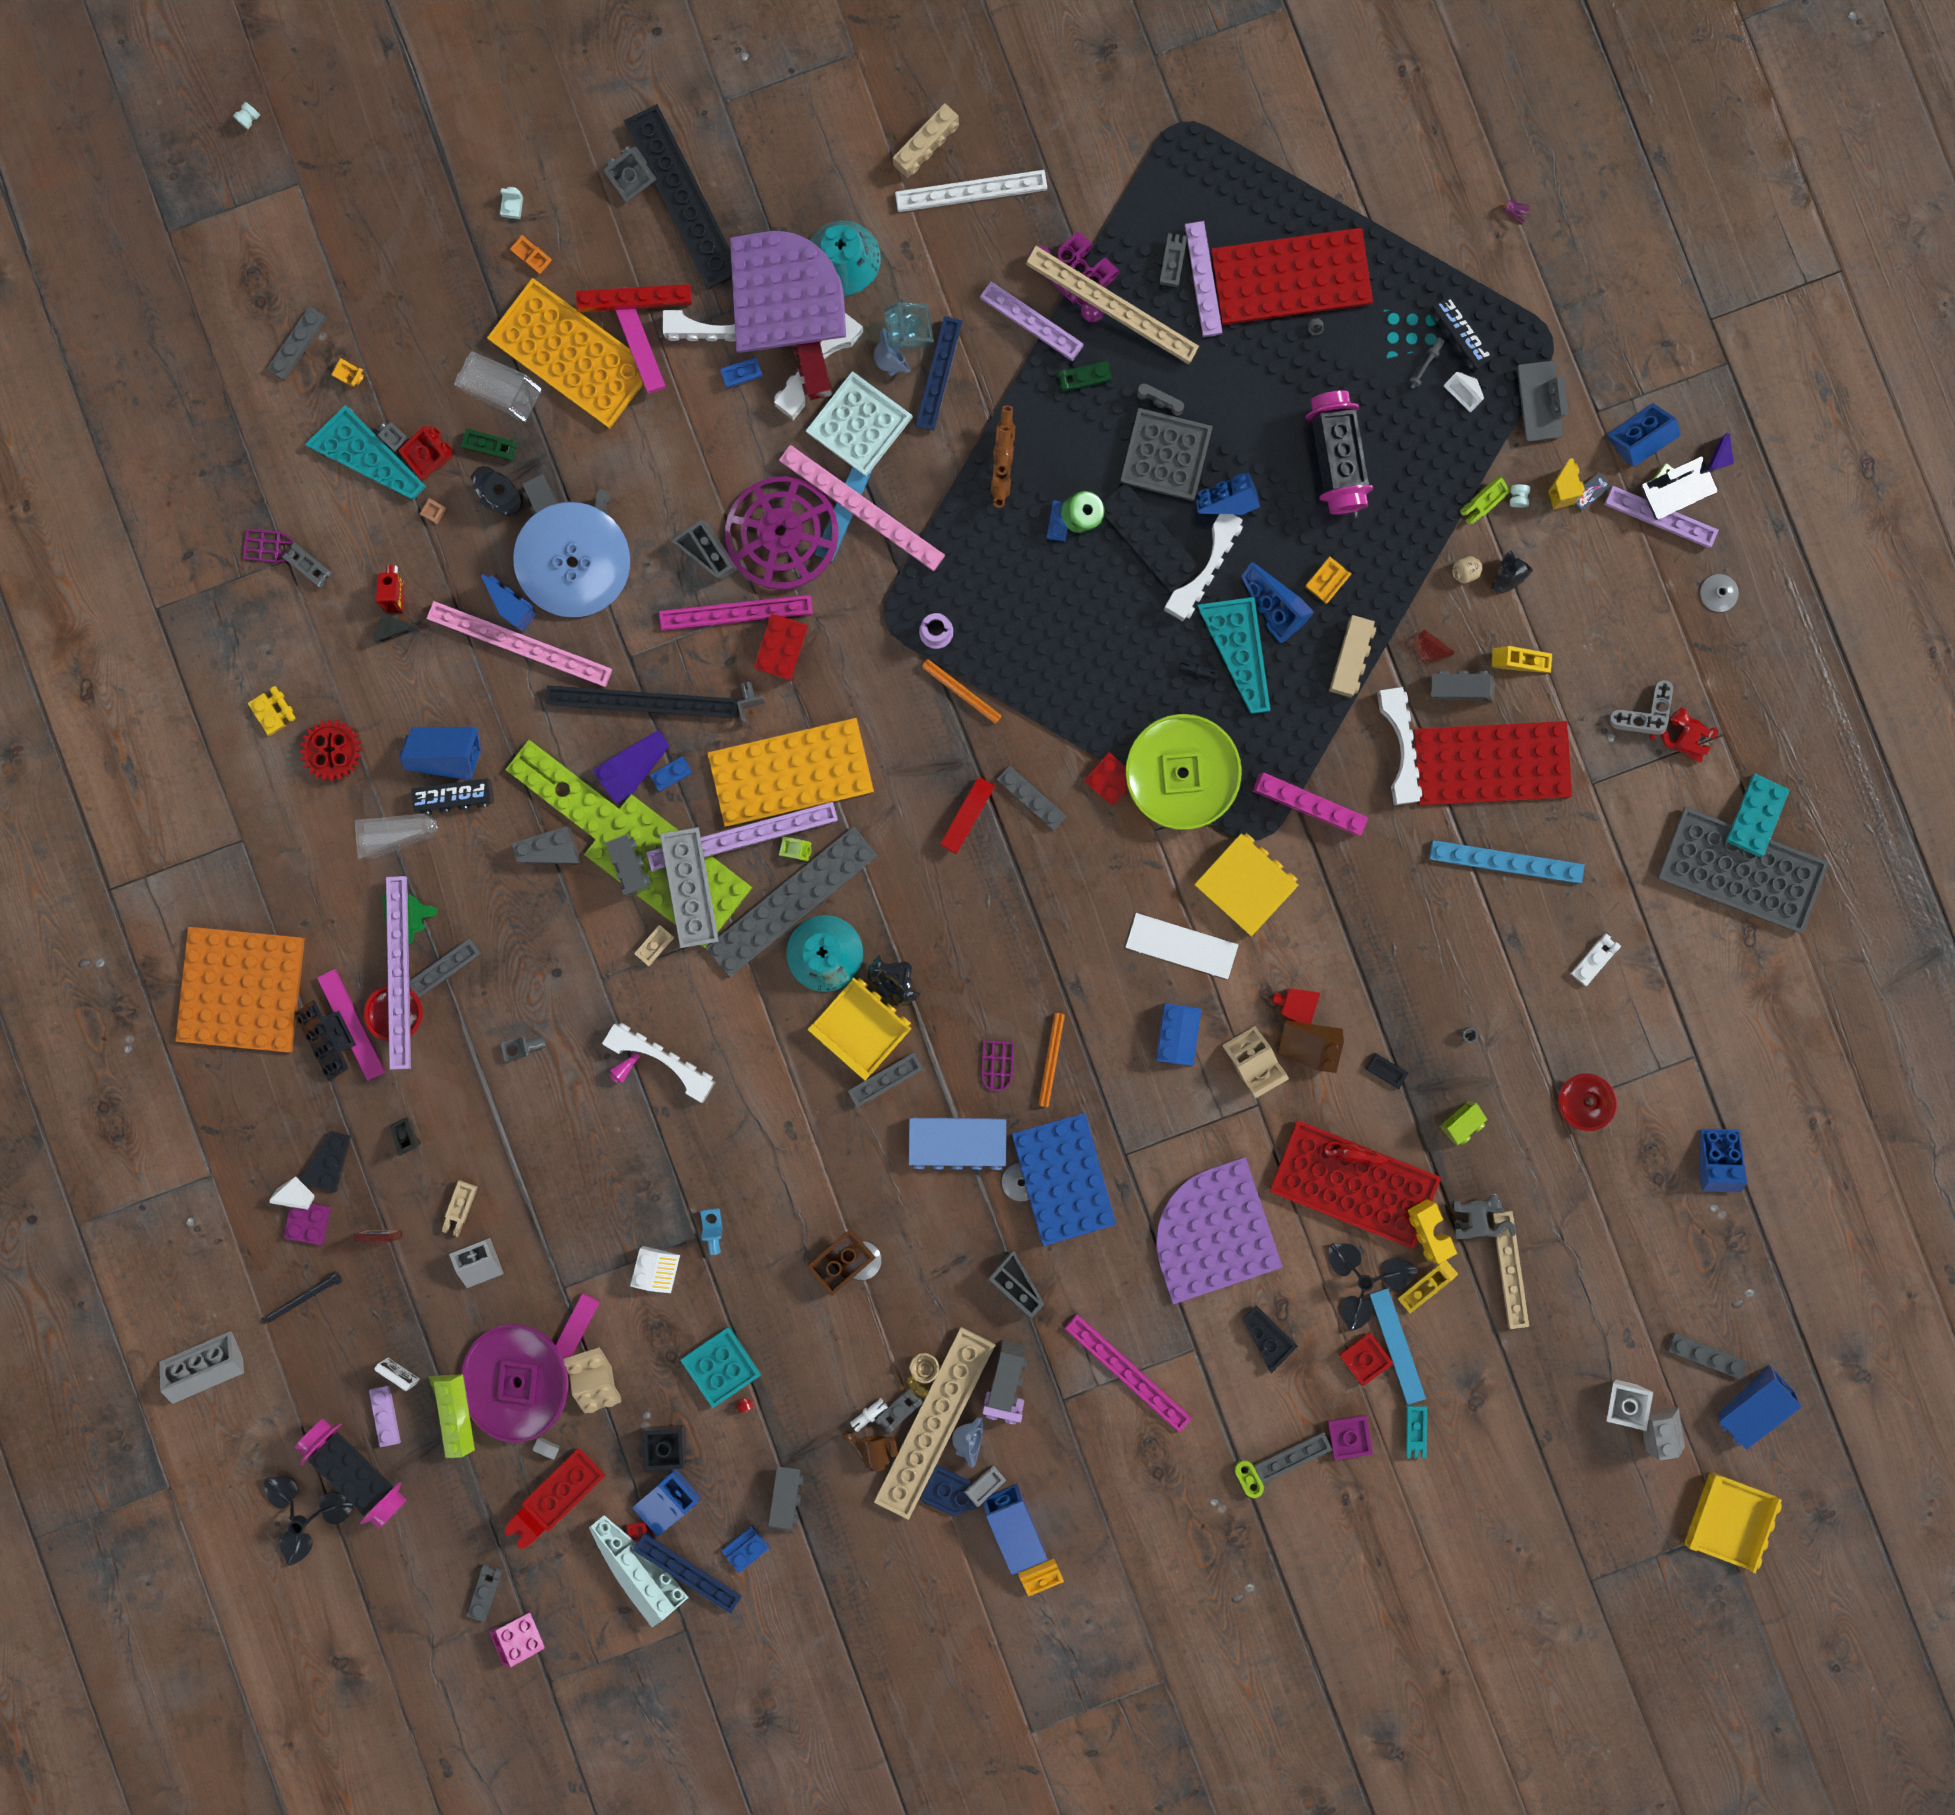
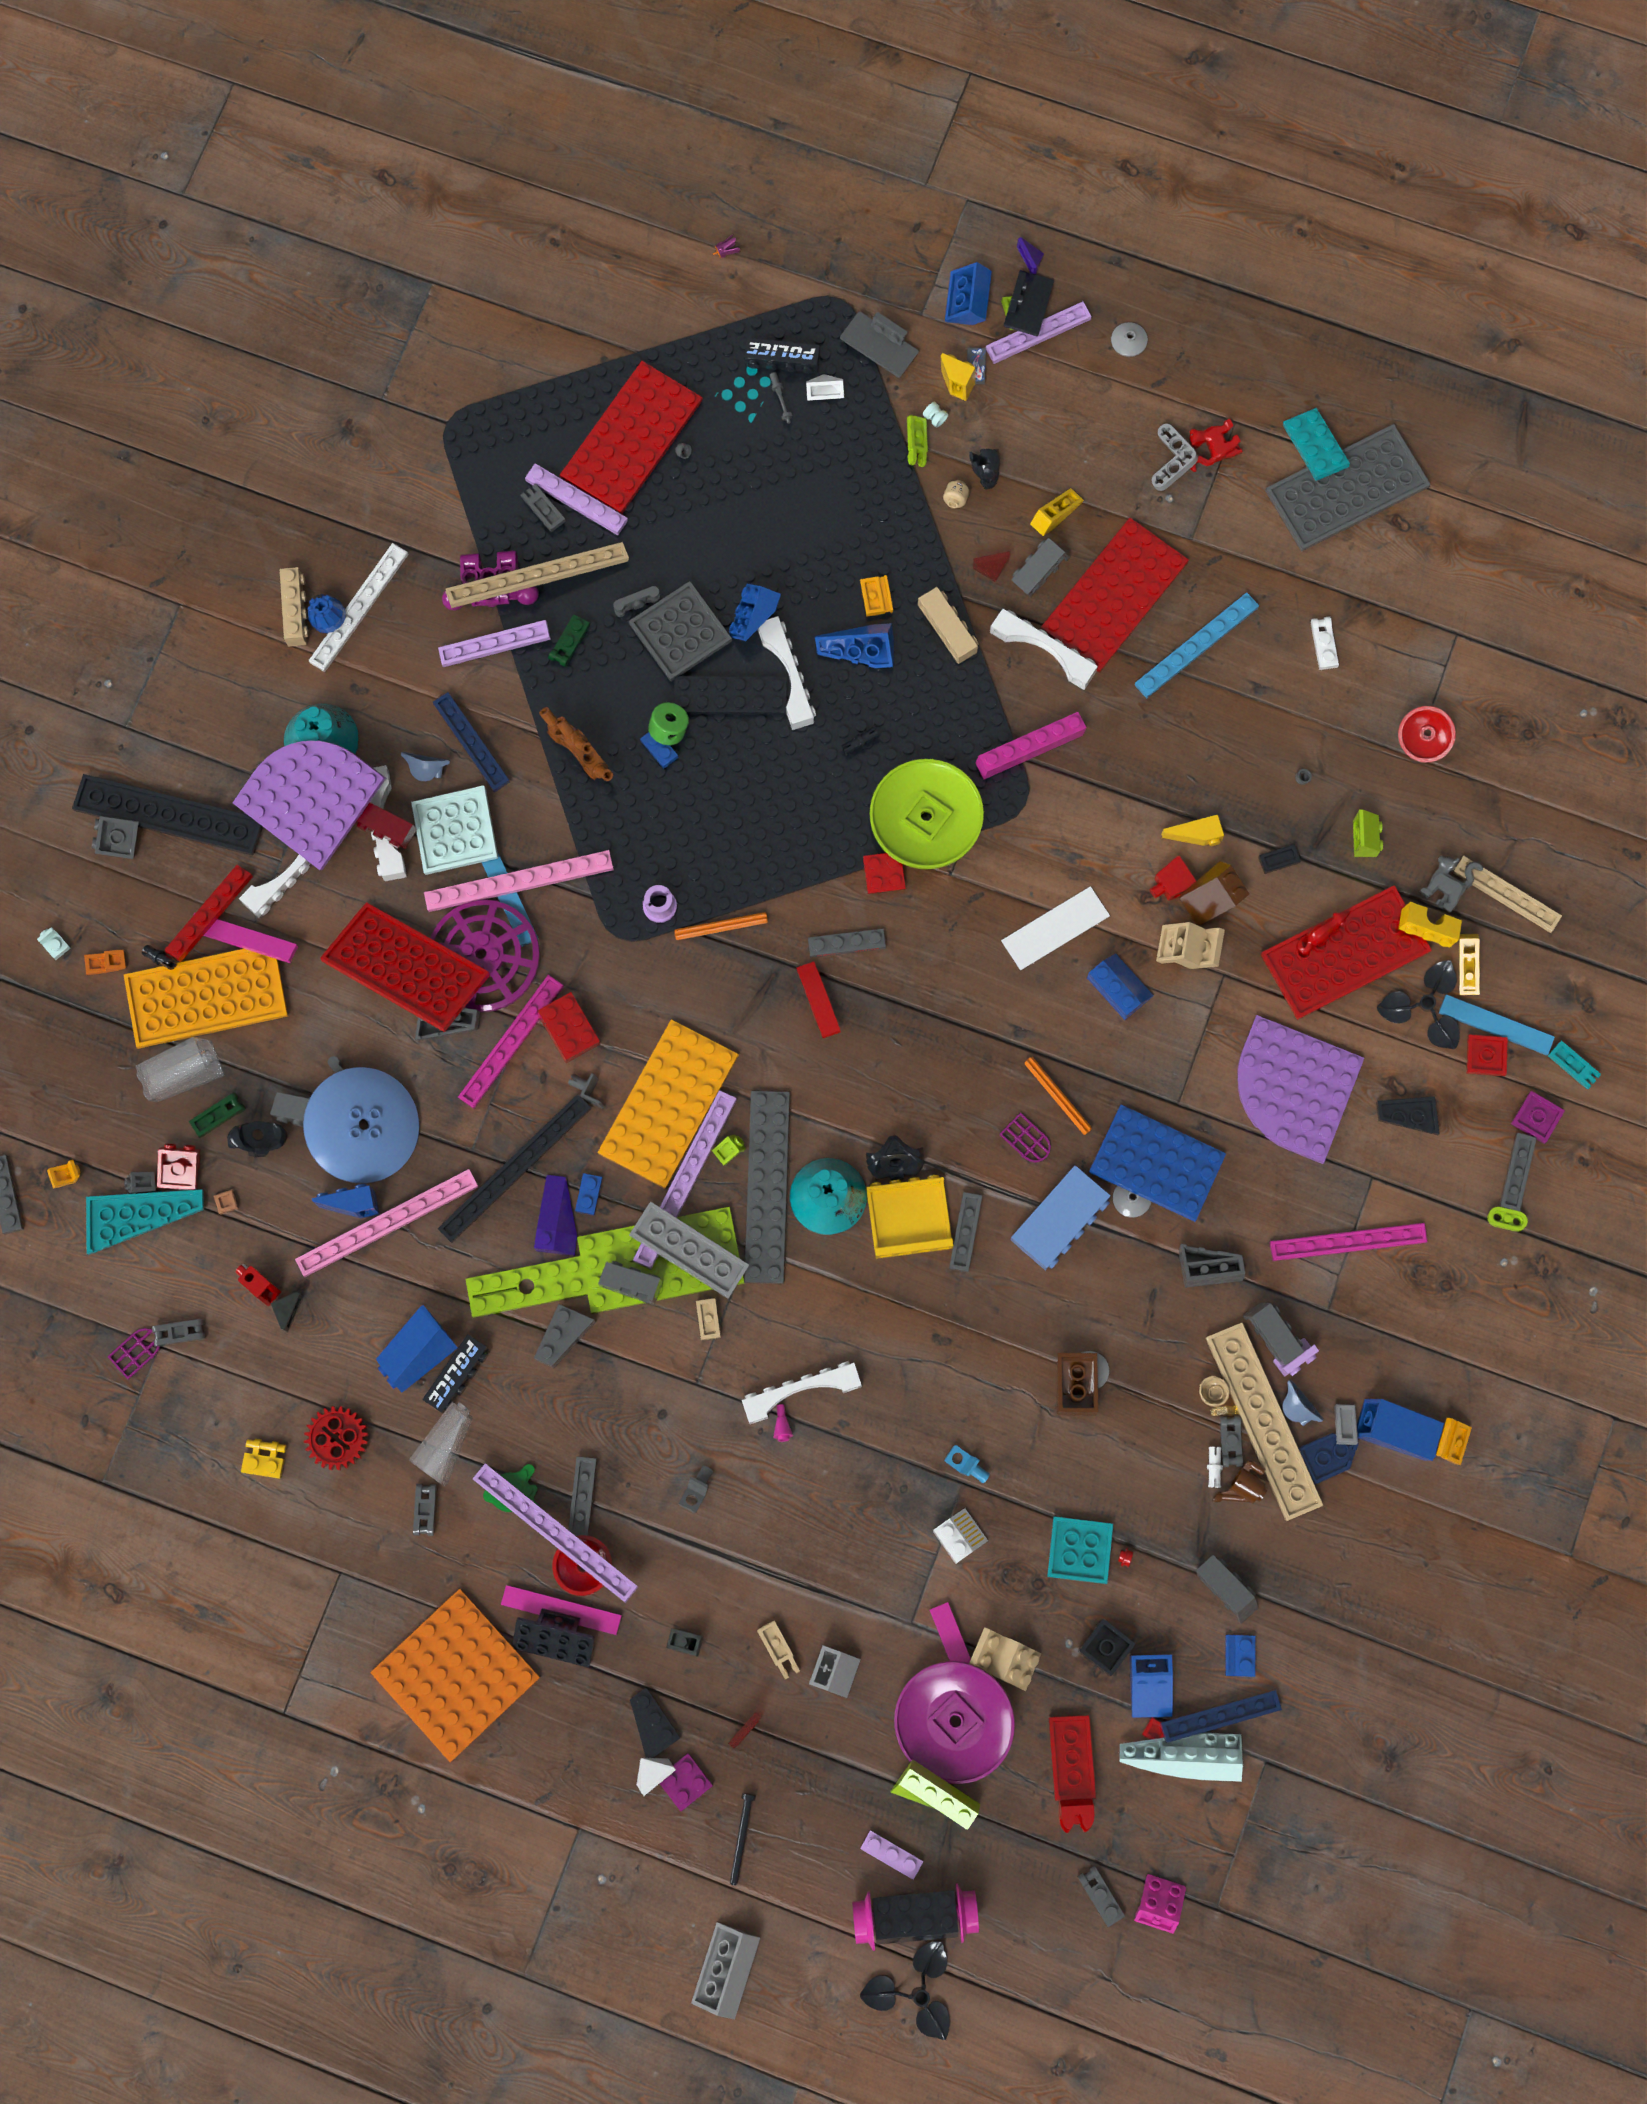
camera: 45 degrees left, 10 degrees down
(336, 861) = (425, 1509): none -> dark grey plate
(396, 1374) = (867, 1811): white tile -> none
(546, 1448) = (1027, 1744): light grey piece -> none
(568, 292) = (159, 957): none -> black pin
(718, 483) = (405, 966): none -> red plate
(741, 373) = (337, 883): blue plate -> none
(909, 325) = (416, 731): clear light blue brick -> none
(942, 171) = (326, 613): none -> blue piece
(1237, 637) = (861, 694): teal wing -> none
(1247, 883) = (1050, 840): yellow panel -> none
(1339, 452) = (791, 507): black brick -> none
(1354, 992) = (1199, 832): none -> yellow slope
(1721, 1161) = (1553, 678): blue slope -> none

